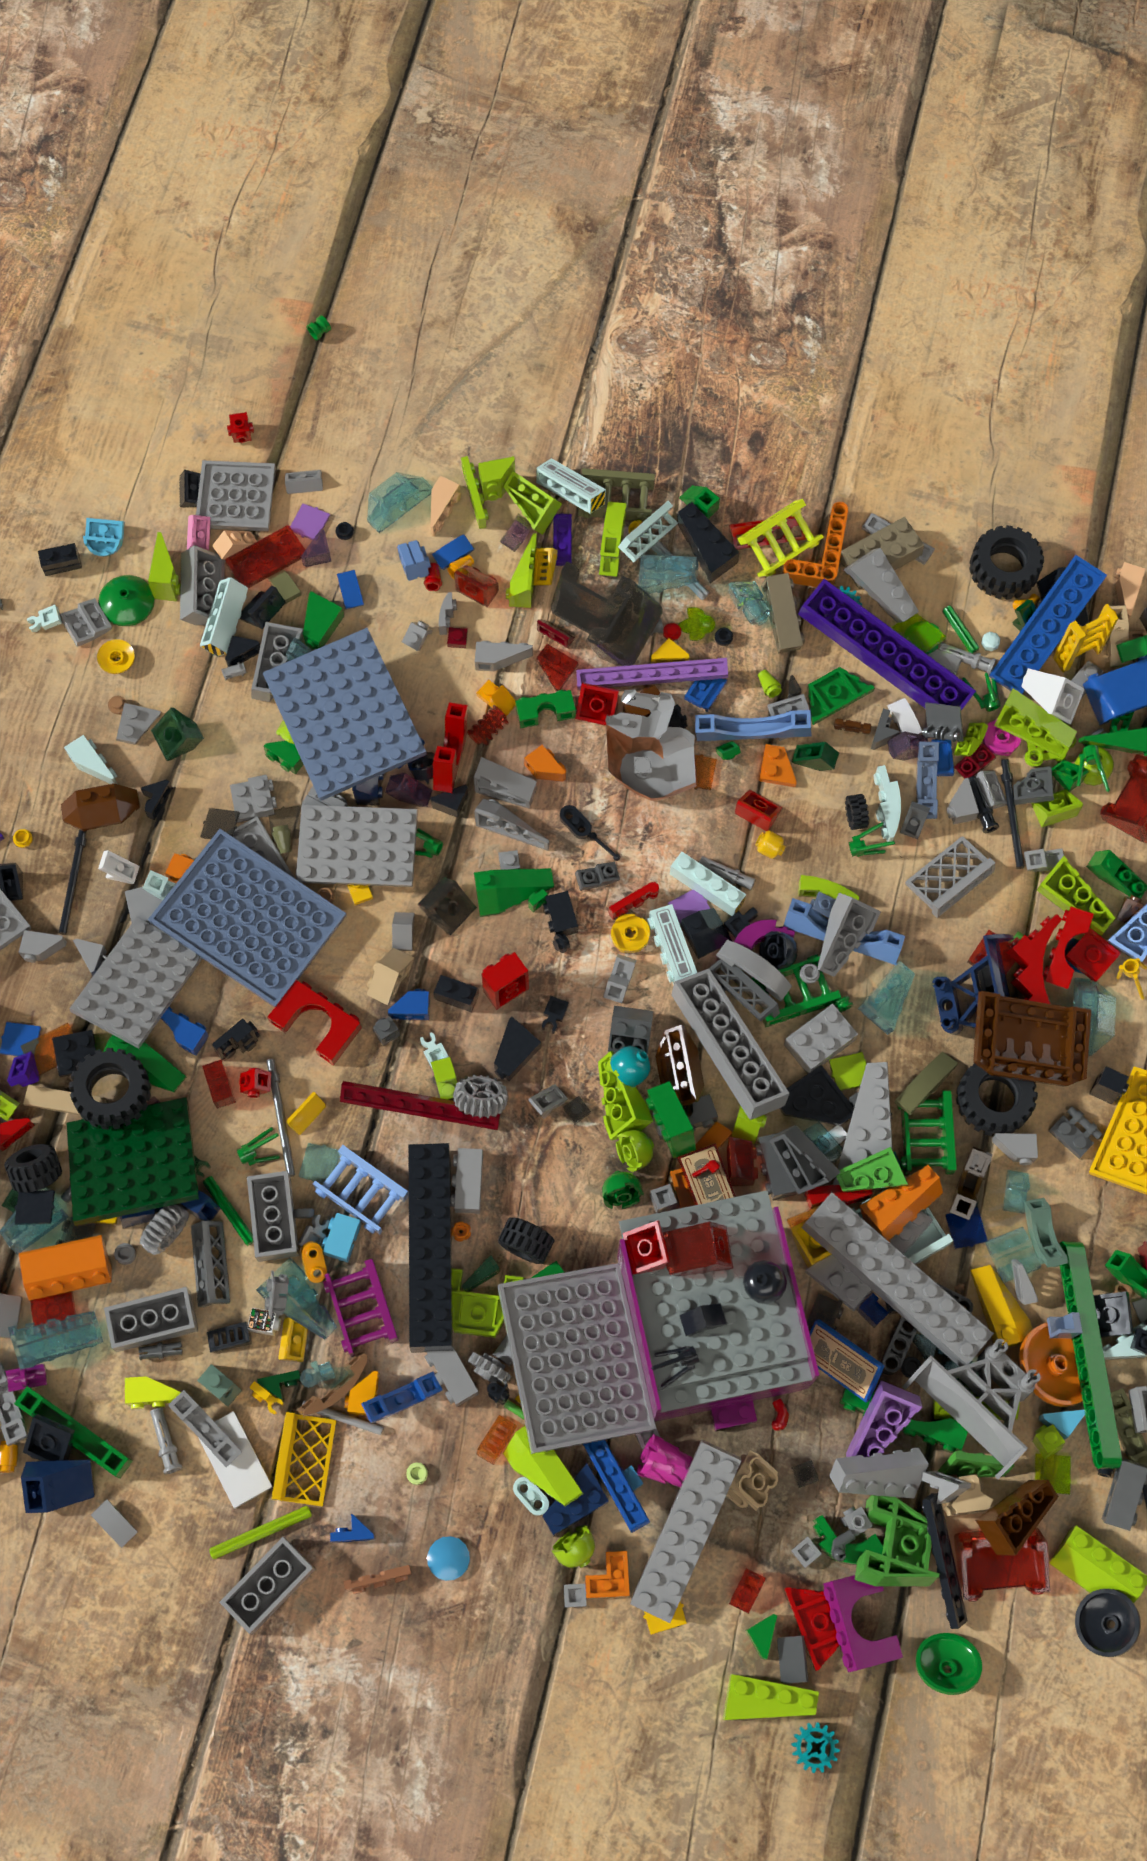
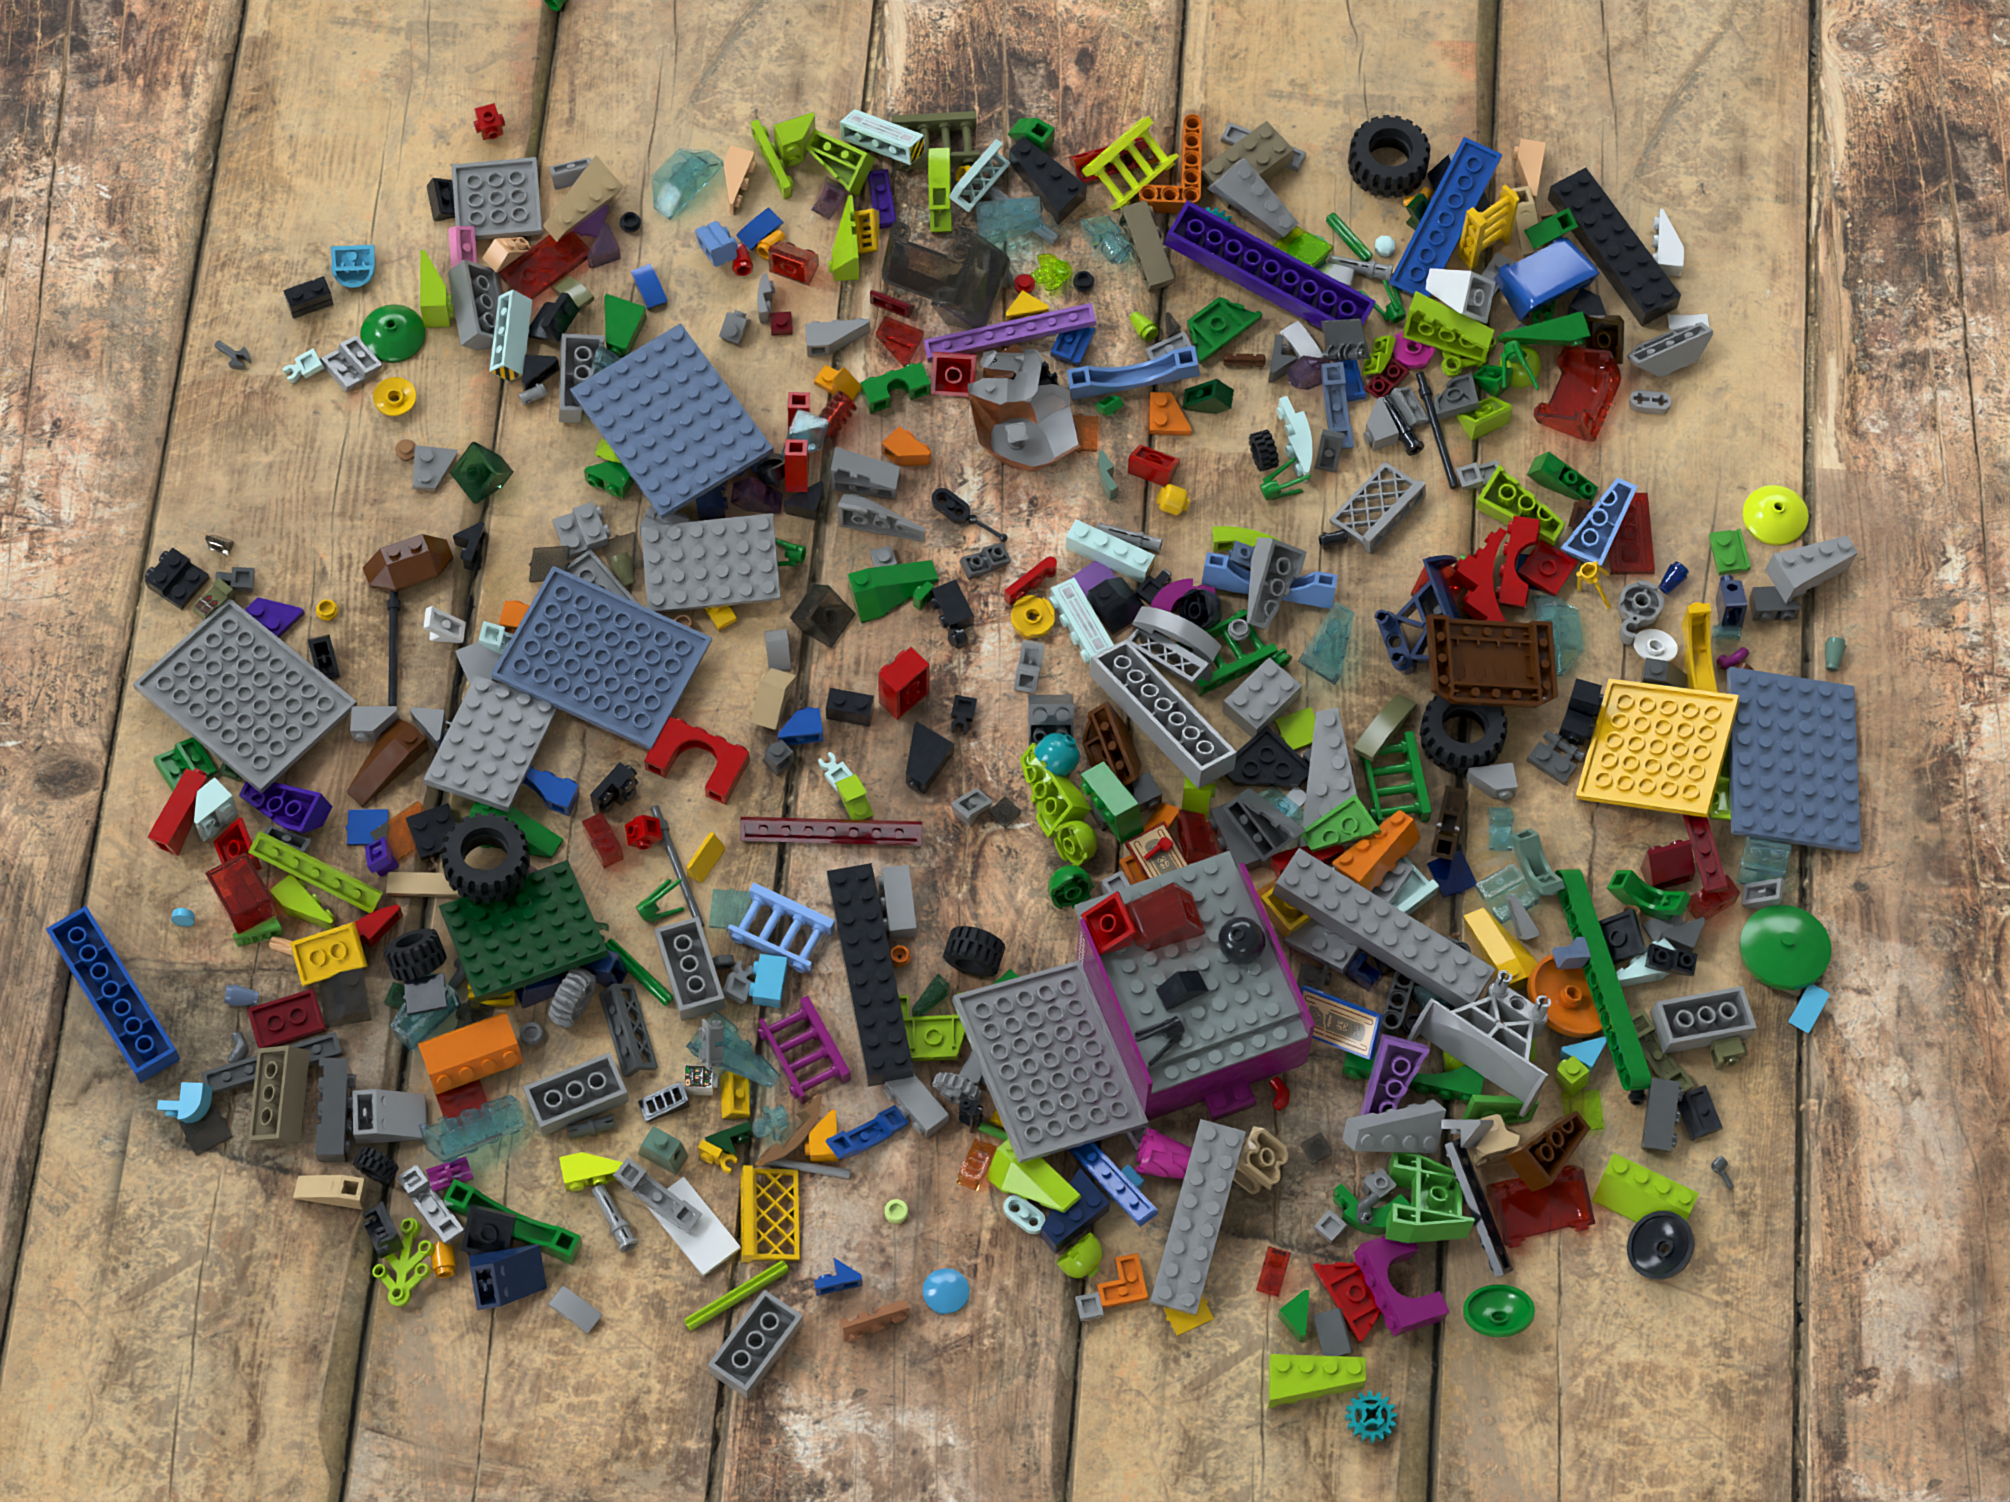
camera: 10 degrees left, 5 degrees down
(52, 978) = (390, 756): none -> reddish brown wedge
(87, 760) = (386, 515): light aqua slope -> none
(307, 505) = (587, 195): none -> tan wedge
(314, 1262) = (741, 1011): light orange plate -> none
(459, 738) = (808, 427): none -> clear light blue slope
(480, 1096) = (897, 809): light grey gear -> none
(715, 811) = (1106, 471): none -> sand green slope
(905, 900) = (1333, 538): none -> black pin
(1098, 1108) = (1576, 727): none -> black brick

